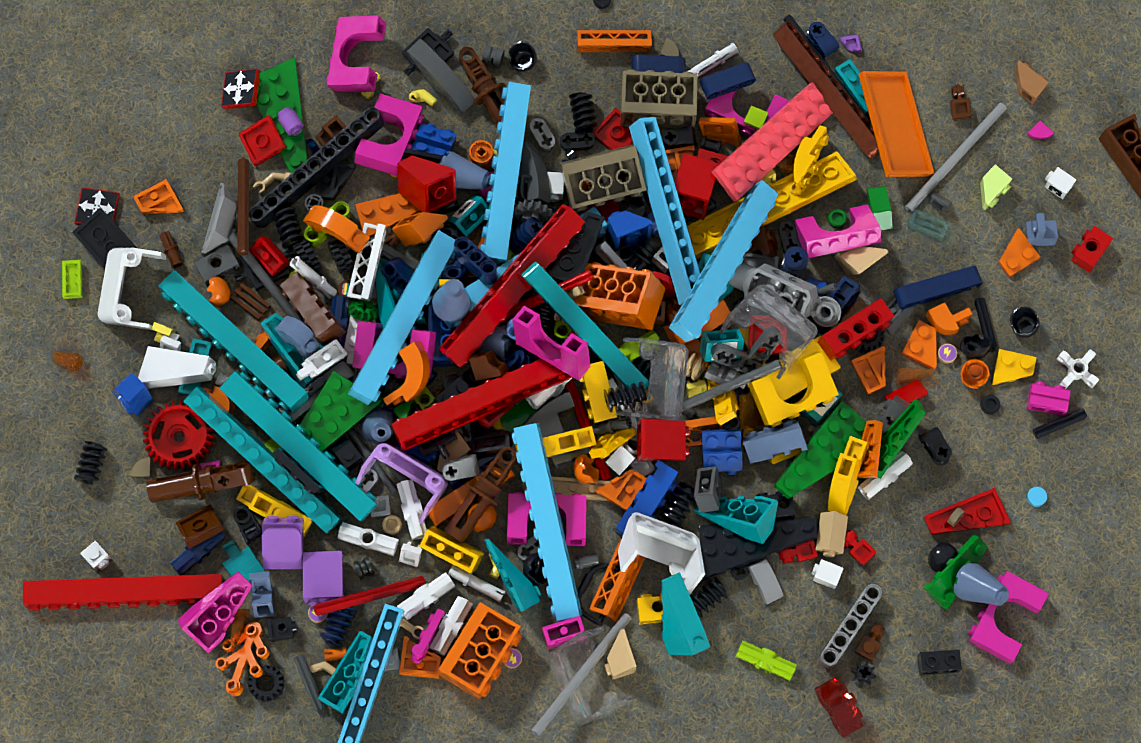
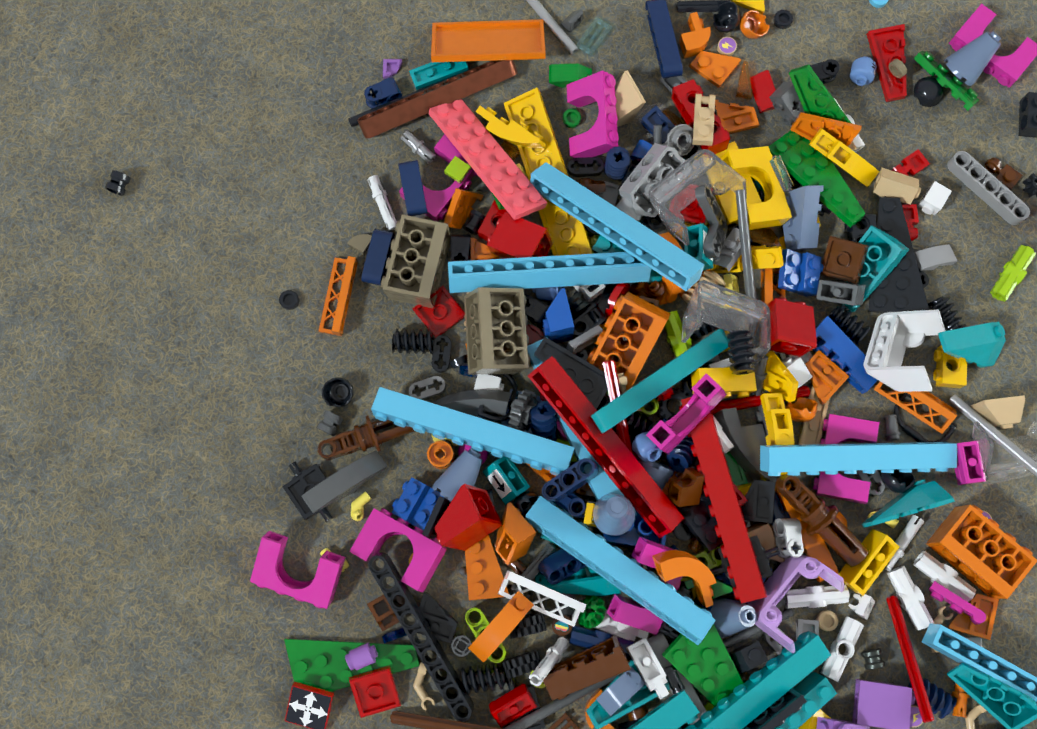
camera: 75 degrees left, 5 degrees up
(742, 489) = (844, 259): none -> reddish brown tile
(775, 82) = (418, 147): none -> light grey pin
(814, 412) = (781, 173): none -> clear piece
(849, 327) = (703, 120): none -> tan plate
(949, 488) = (863, 70): none -> medium blue head

